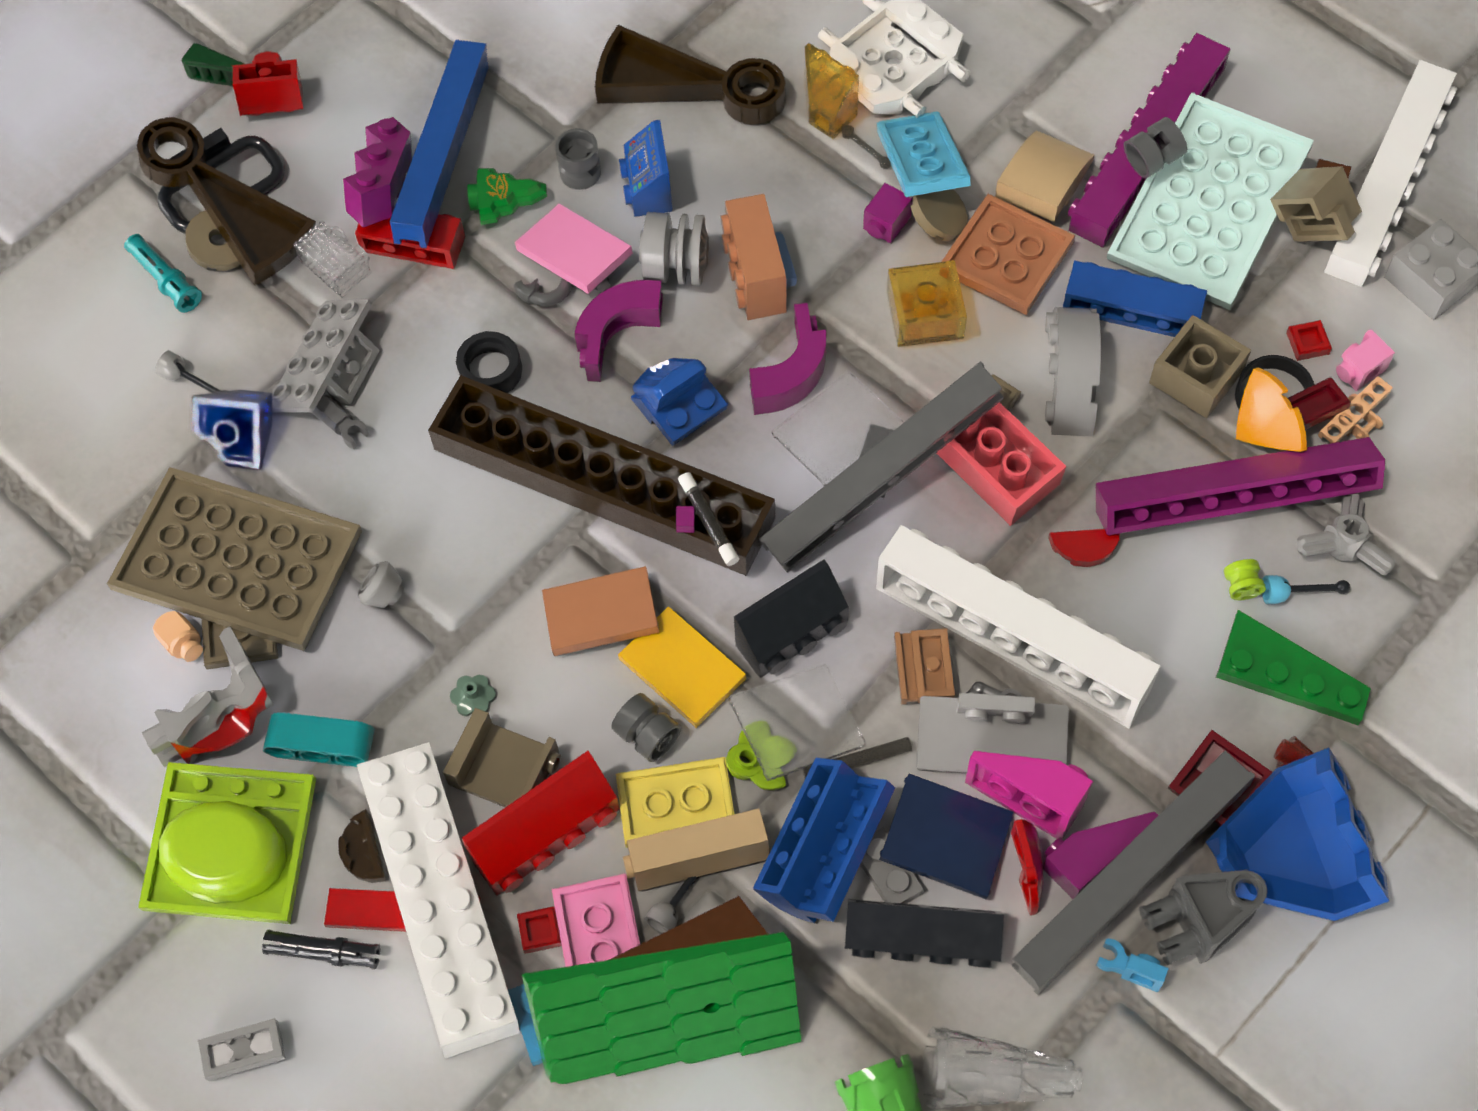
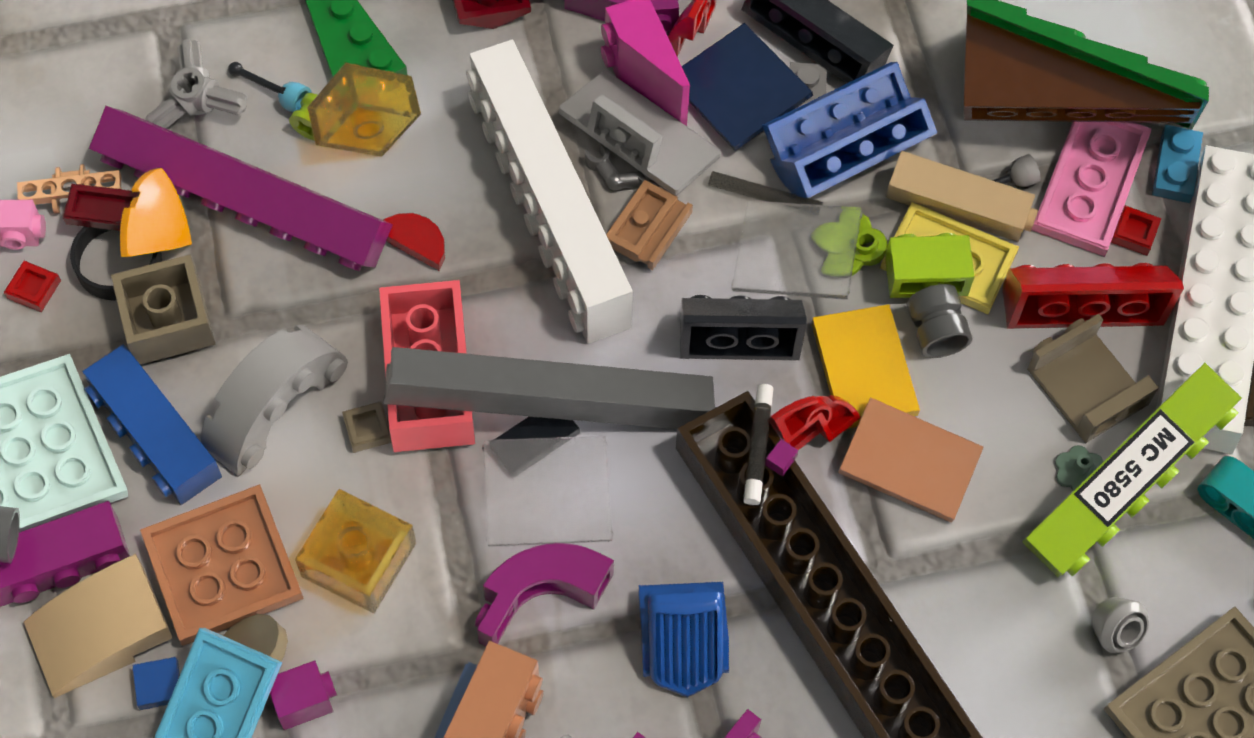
camera: 150 degrees left, 0 degrees up
(424, 683) = (1132, 470): none -> lime brick
(682, 760) = (928, 261): none -> lime brick
(690, 573) = (813, 416): none -> red brick
(983, 172) = (155, 682): none -> blue tile
(1202, 583) = (363, 110): none -> clear yellow brick

